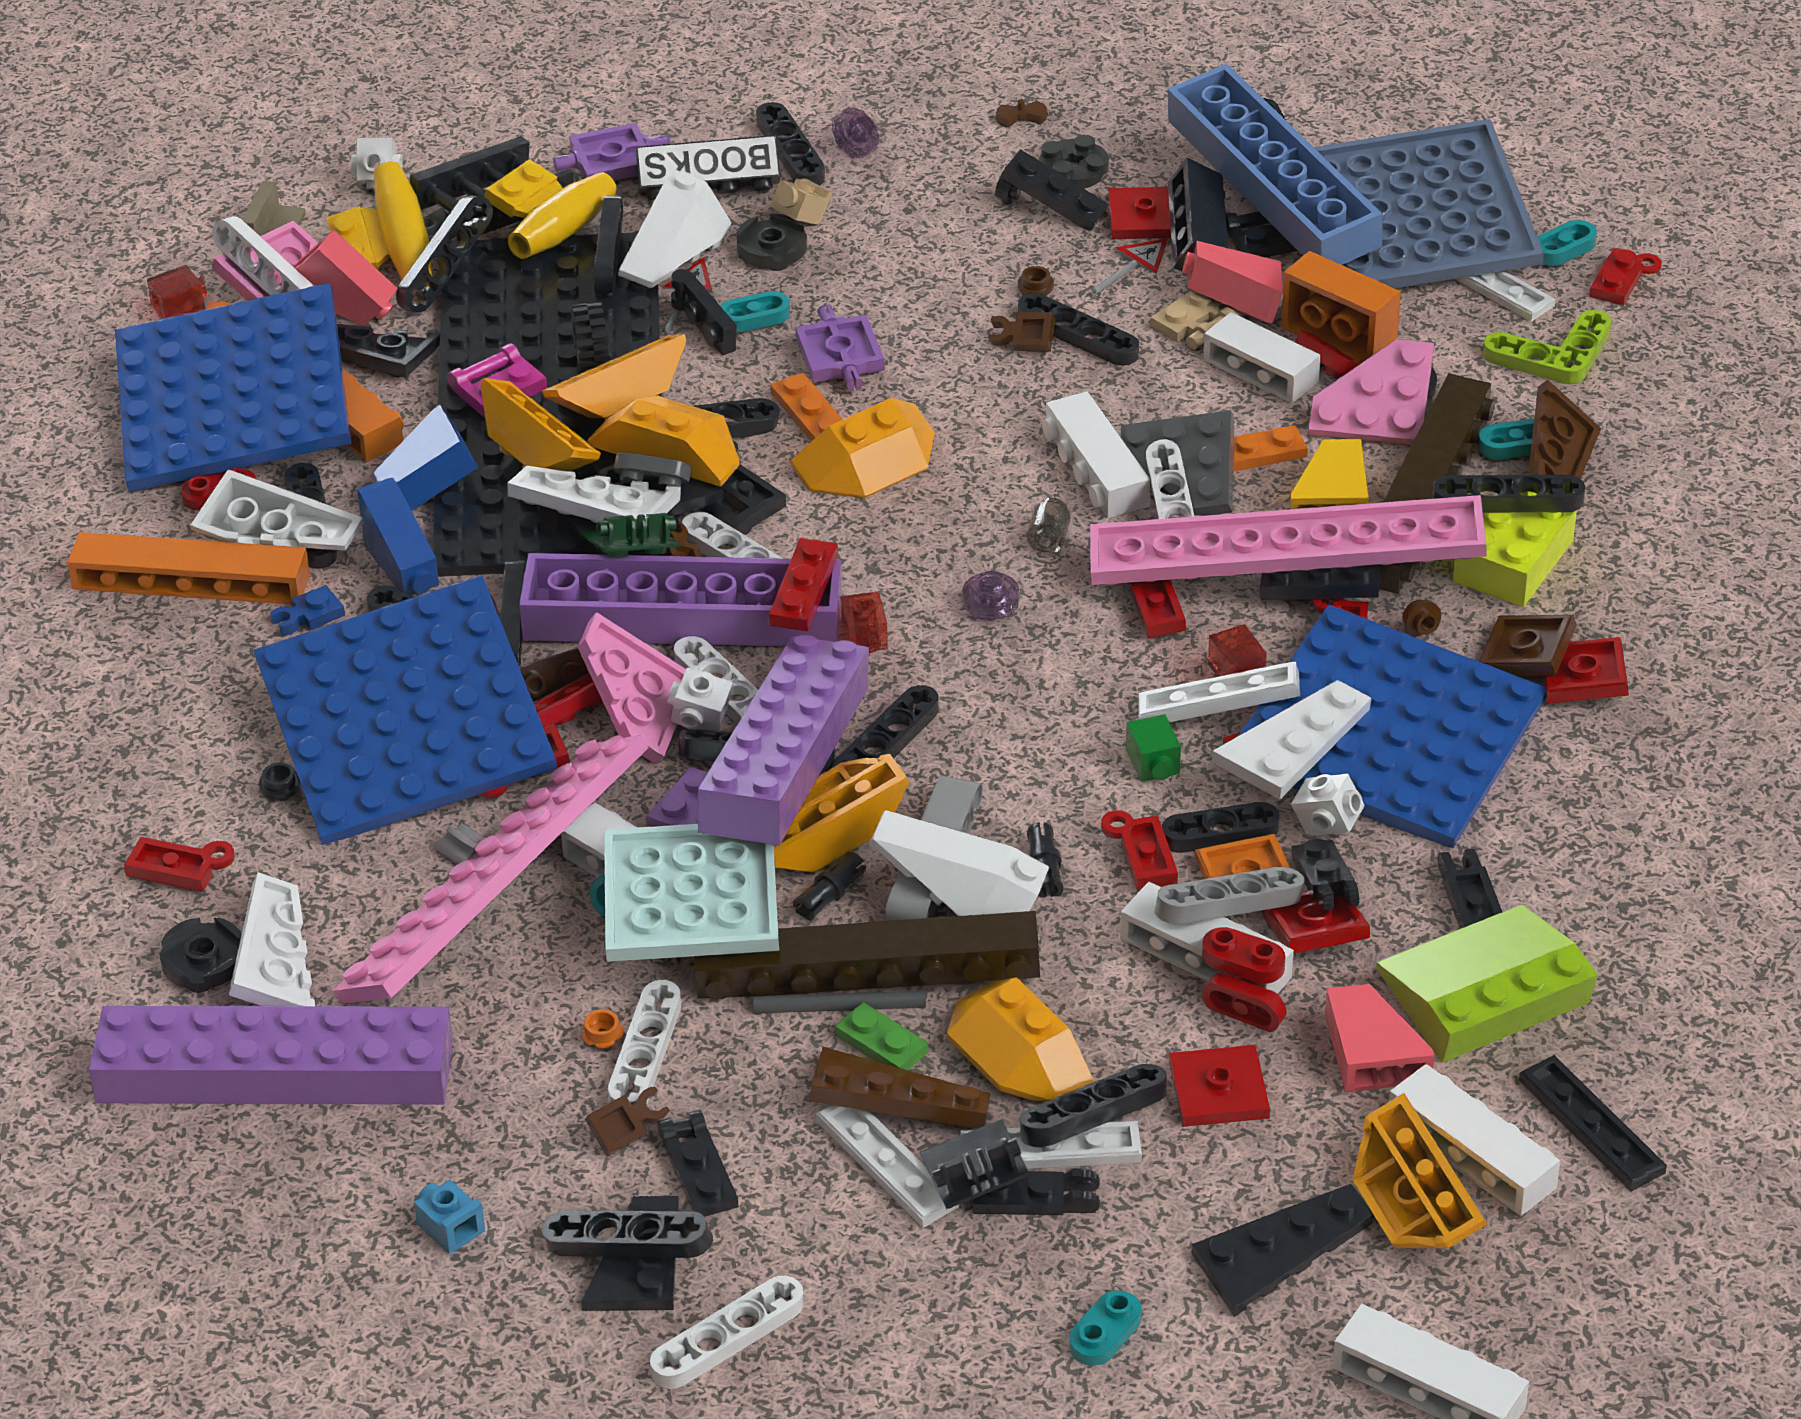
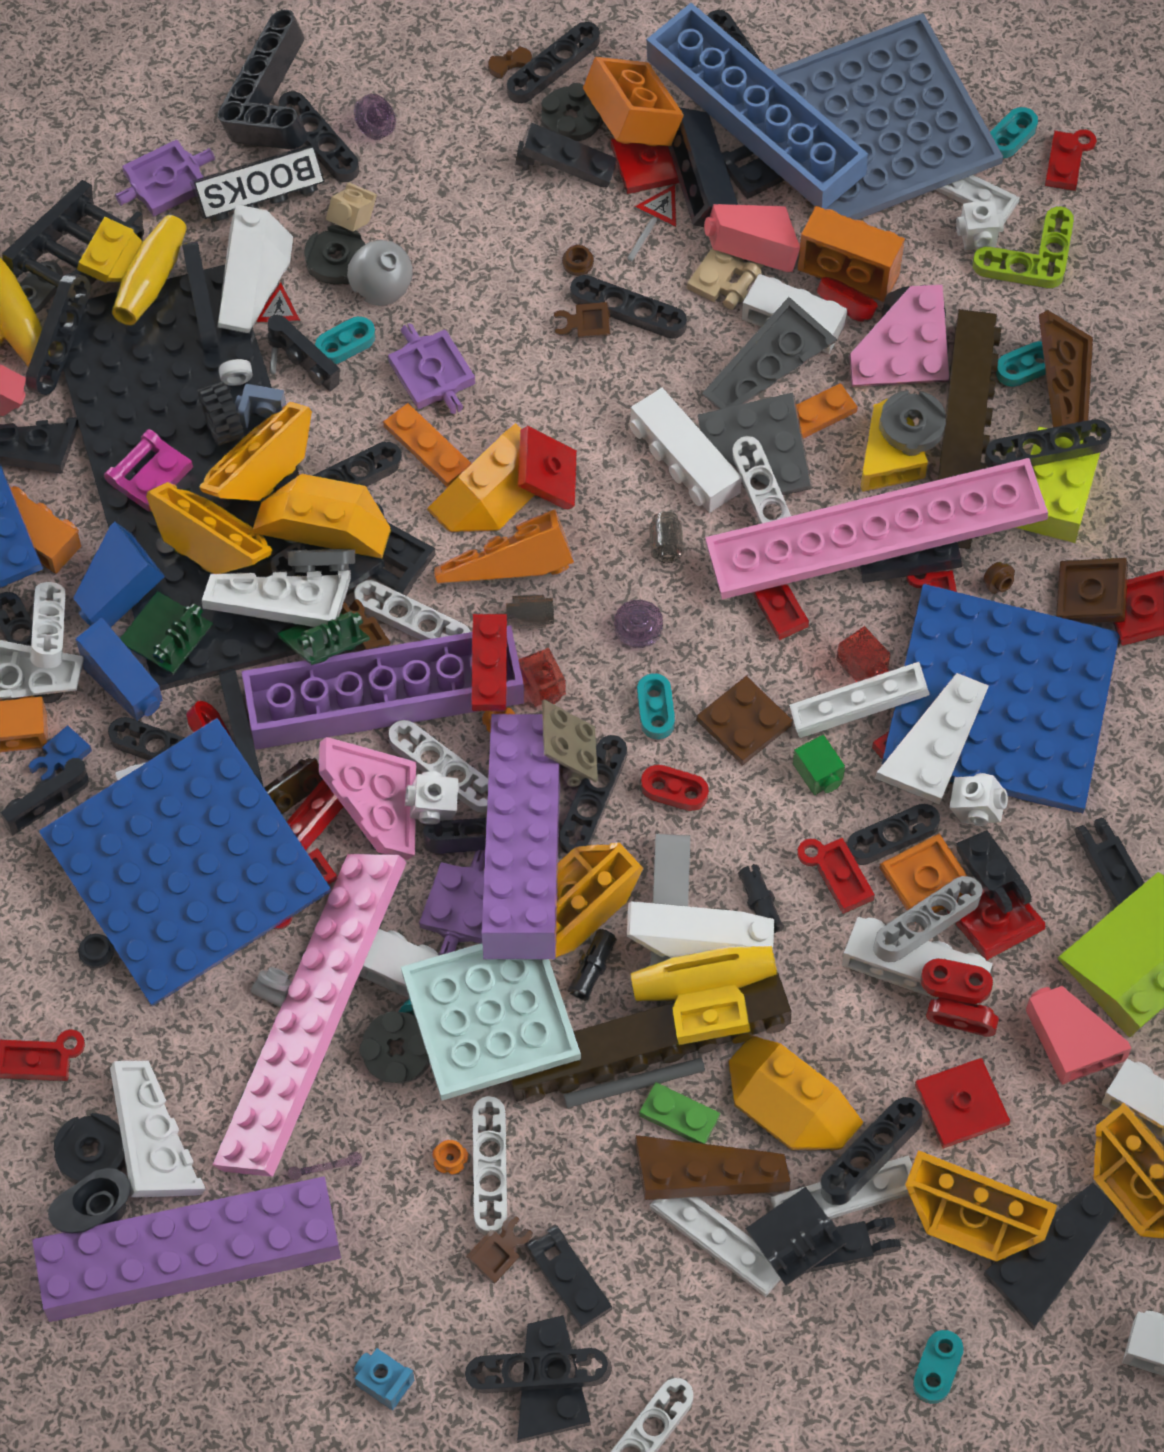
camera: 15 degrees left, 20 degrees up
(188, 988) = (91, 1202): none -> black piece
(240, 645) = (46, 796): none -> black plate
(335, 487) = (46, 625): none -> white beam
(464, 515) = (166, 632): none -> dark green hinge
(493, 1017) = (354, 1160): none -> hinge
(559, 907) = (376, 1048): none -> pearl dark grey plate
(622, 311) = (235, 372): none -> white tile
(633, 334) = (260, 401): none -> sand blue bracket
(735, 101) = (246, 108): none -> black beam
(813, 256) = (380, 272): none -> light grey cylinder
(872, 565) = (530, 611): none -> clear smoke brick
(872, 673) = (569, 743): none -> dark tan hinge
(891, 511) = (532, 551): none -> orange wedge
(934, 443) = (547, 468): none -> red plate
(945, 906) = (706, 989): none -> yellow plate
(984, 670) = (655, 708): none -> teal plate
(984, 744) = (675, 787): none -> red plate
(1035, 130) = (551, 61): none -> black beam
(1083, 700) = (744, 720): none -> reddish brown plate
(1138, 149) = (633, 101): none -> orange brick
(1195, 1171) = (976, 1209): none -> light orange wedge
(1223, 380) = (772, 353): none -> dark grey wing
(1375, 459) = (912, 438): none -> dark grey plate
(1499, 303) = (979, 224): none -> white brick

